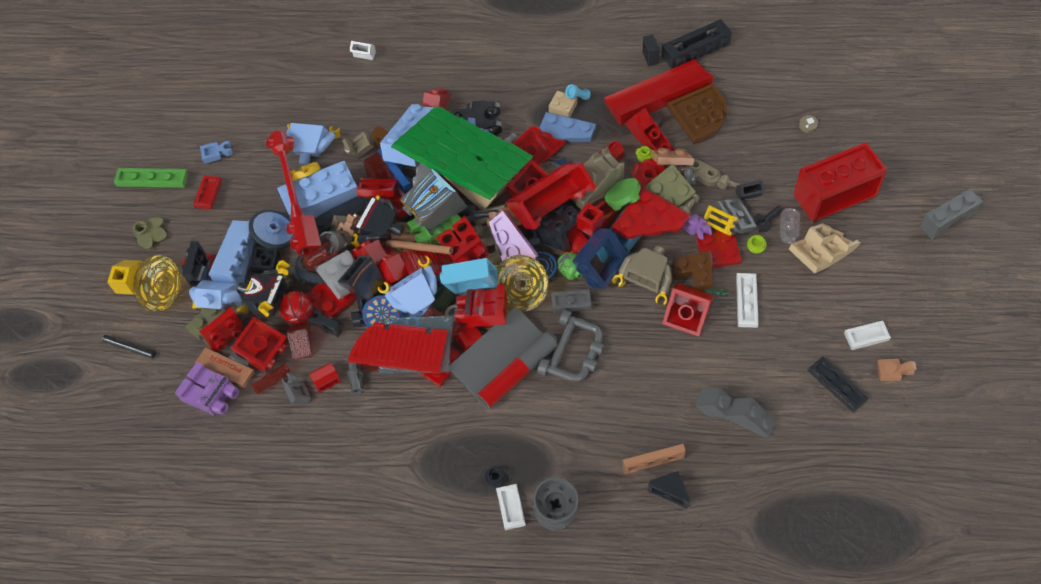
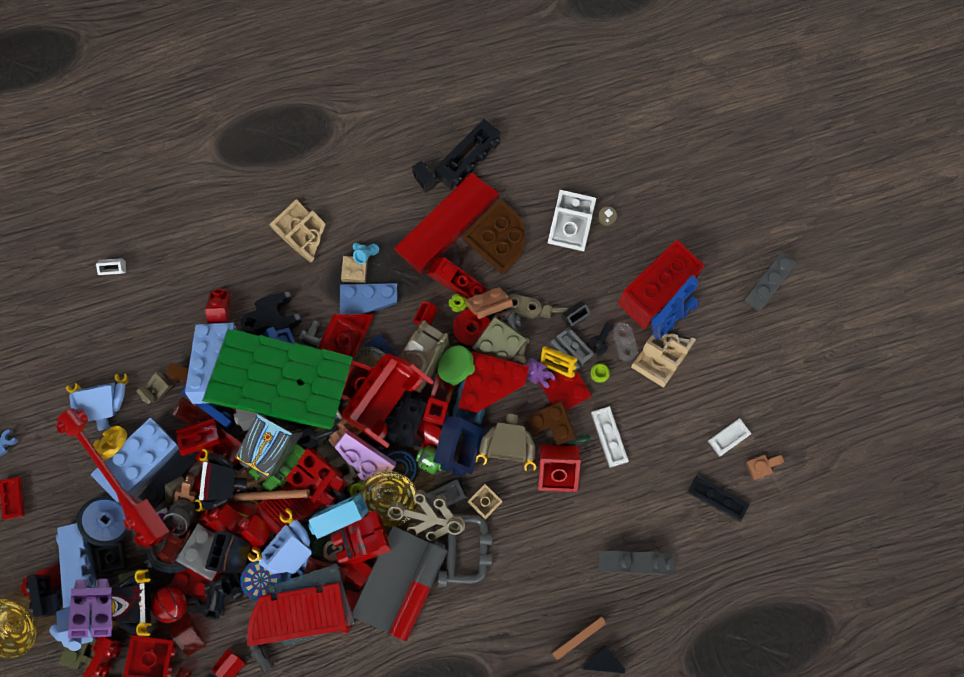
camera: 30 degrees left, 15 degrees up
(229, 276) = (90, 601): none -> medium lavender hips
(337, 311) = (216, 592): none -> black piece
(528, 63) = (299, 229): none -> tan slope
(552, 308) = (428, 517): none -> dark tan plant
(608, 316) = (485, 502): none -> tan piece
(773, 116) = (571, 220): none -> white slope
(840, 204) = (675, 309): none -> blue wing

